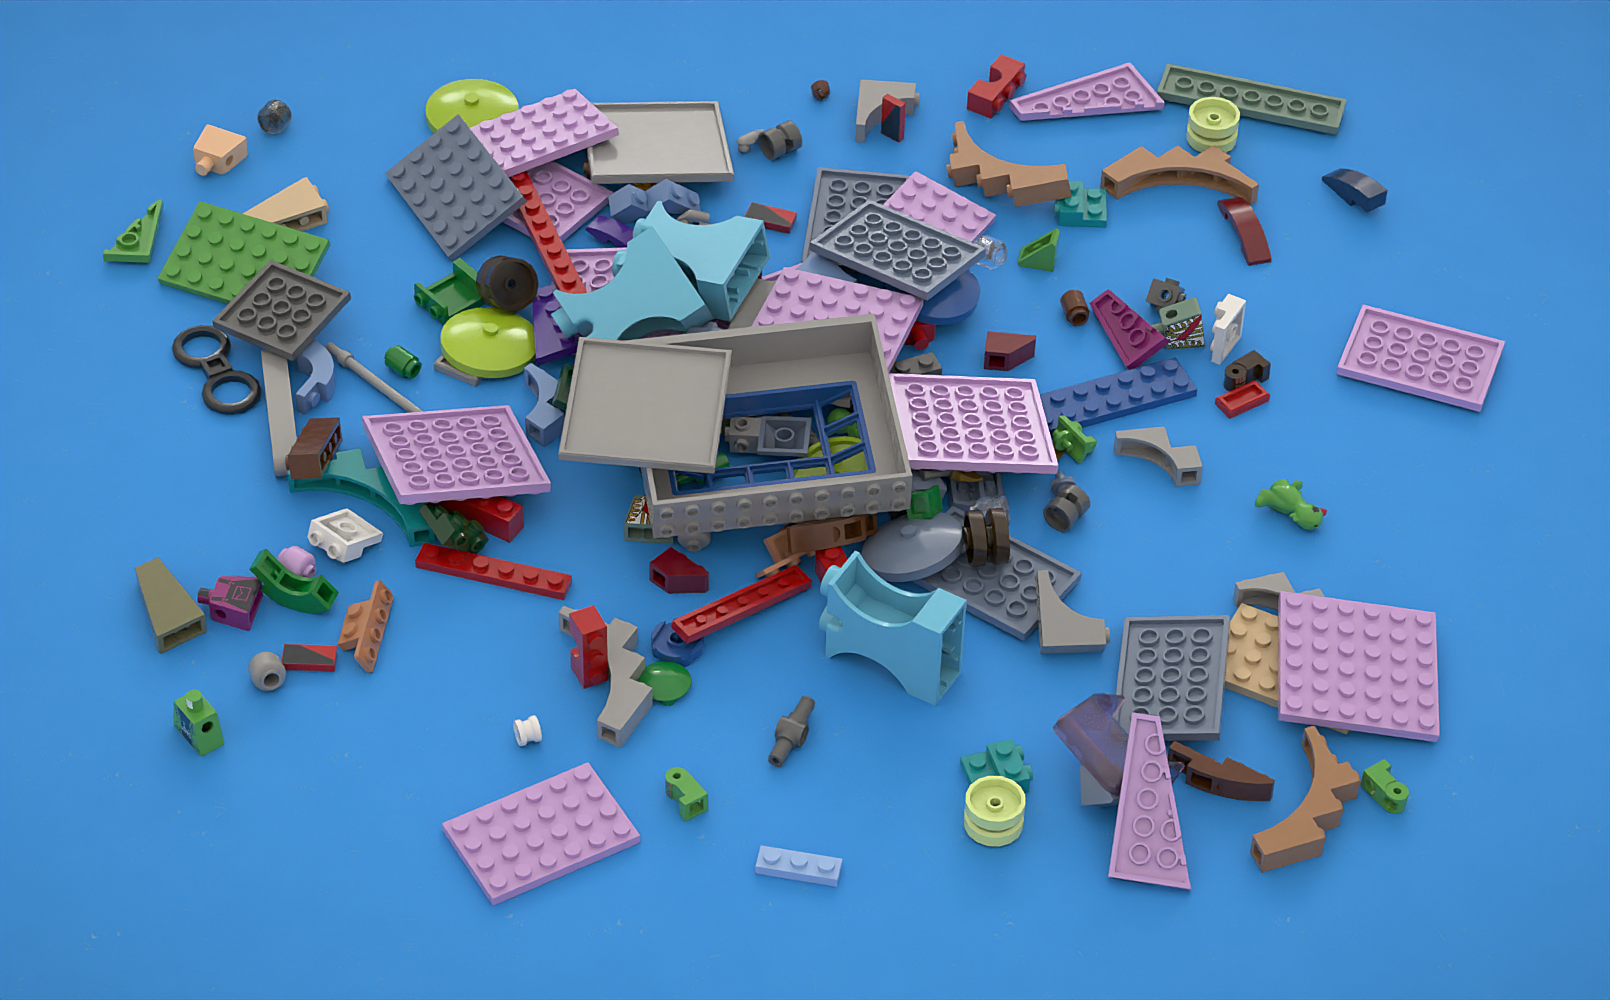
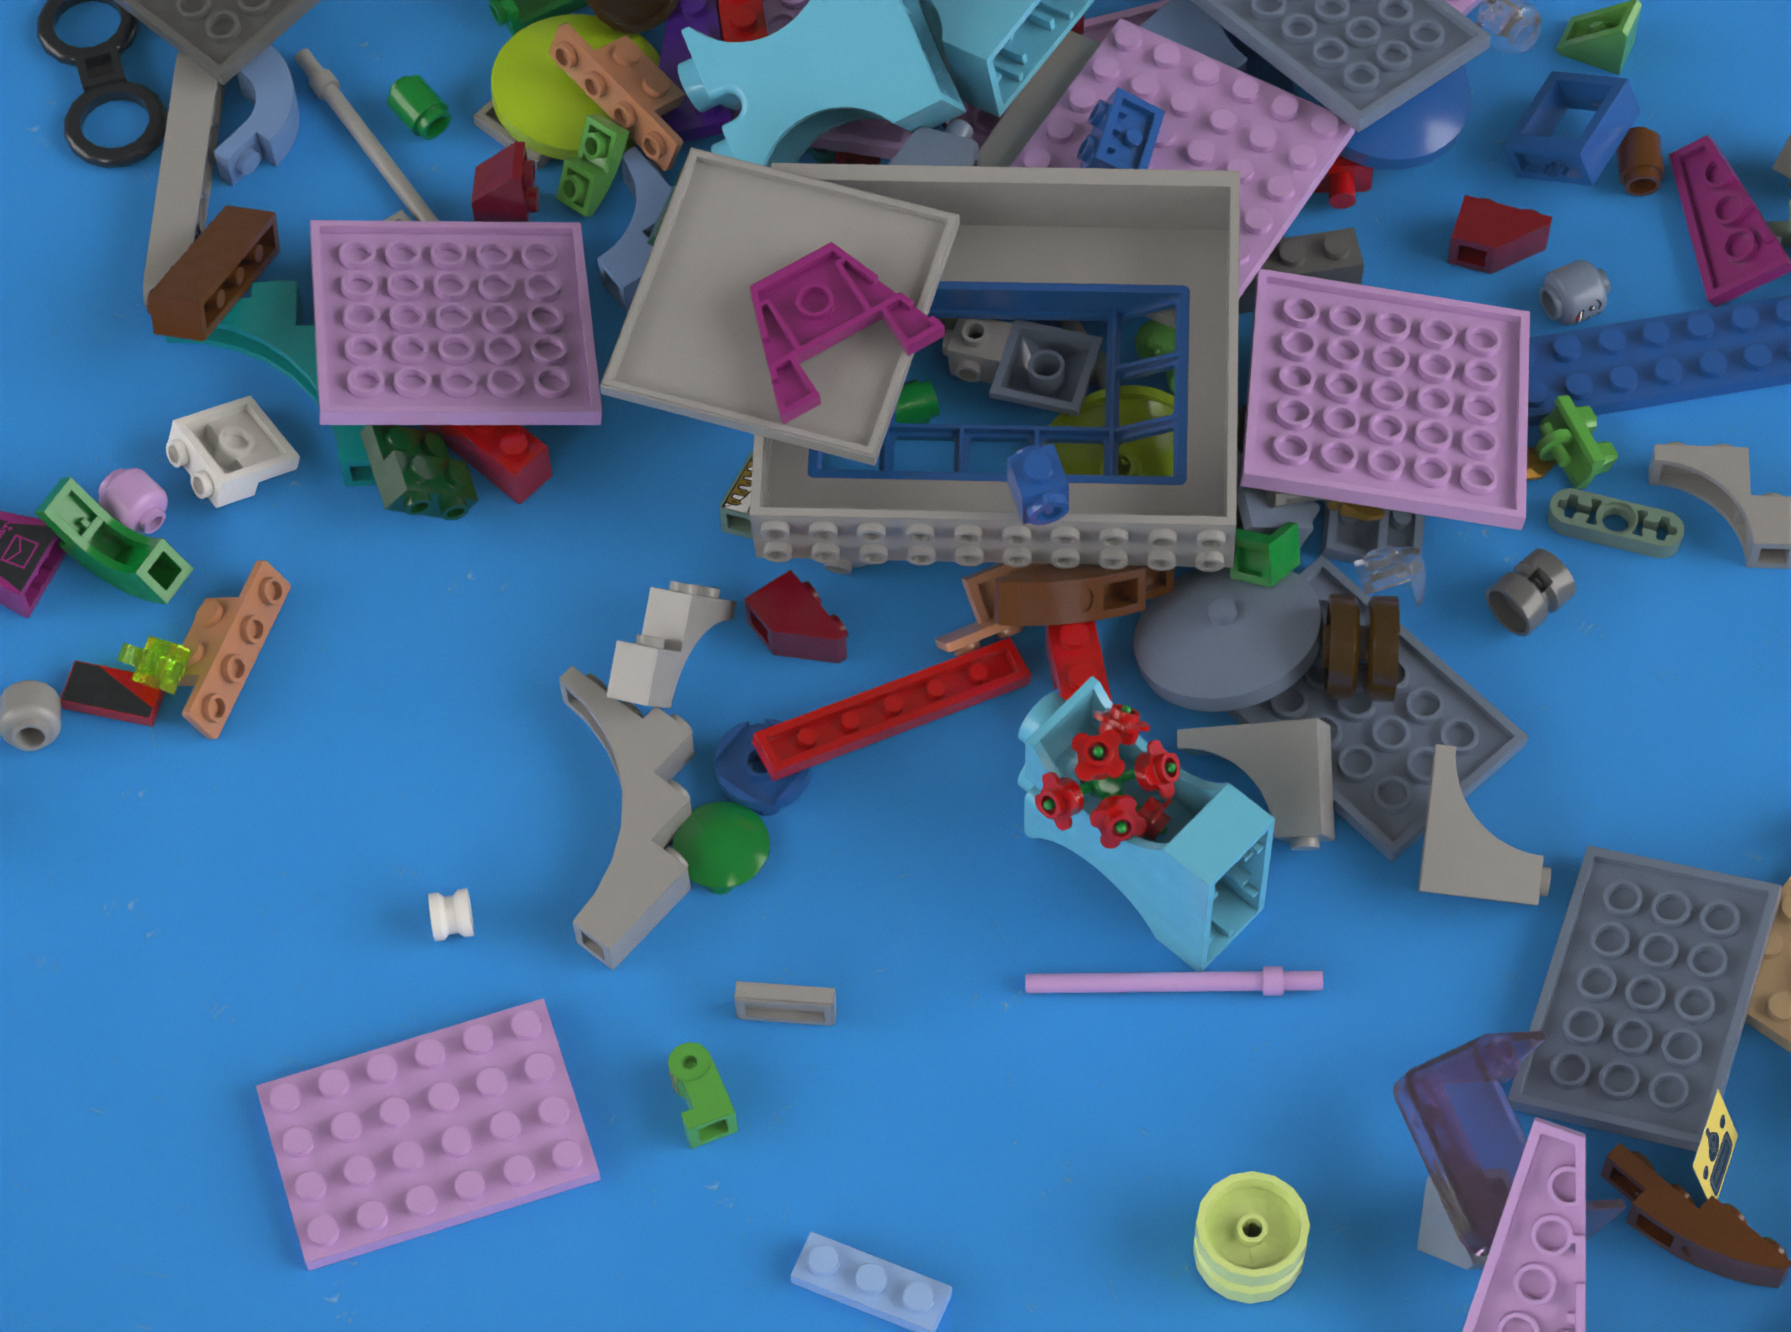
camera: 15 degrees right, 15 degrees up
(334, 636) = (158, 664): none -> clear neon green plate
(462, 389) = (505, 187): none -> dark red slope
(494, 571) = (479, 564): red plate -> none
(509, 379) = (590, 174): none -> bright green slope
(520, 334) = (626, 88): none -> nougat bracket
(590, 656) = (589, 768): red arch -> none
(610, 591) = (673, 624): none -> light grey arch
(670, 398) = (819, 305): none -> magenta wing
(720, 745) = (785, 1003): none -> light grey tile
(791, 731) = (922, 993): dark grey pin -> none
(801, 308) = (1121, 133): none -> blue bracket
(805, 466) = (1038, 484): none -> blue brick
(868, 585) = (1103, 777): none -> red plant
(967, 587) = (1288, 765): none -> light grey arch
(973, 701) = (1270, 980): none -> lavender bar
(998, 760) = (1281, 1136): teal plate -> none
(1019, 306) = (1581, 160): none -> blue window
(1055, 371) = (1574, 292): none -> sand blue head
(1060, 482) = (1535, 533): sand blue plate -> none
(1111, 468) = (1604, 506): none -> sand green beam
(1223, 736) = (1715, 1149): none -> sticker

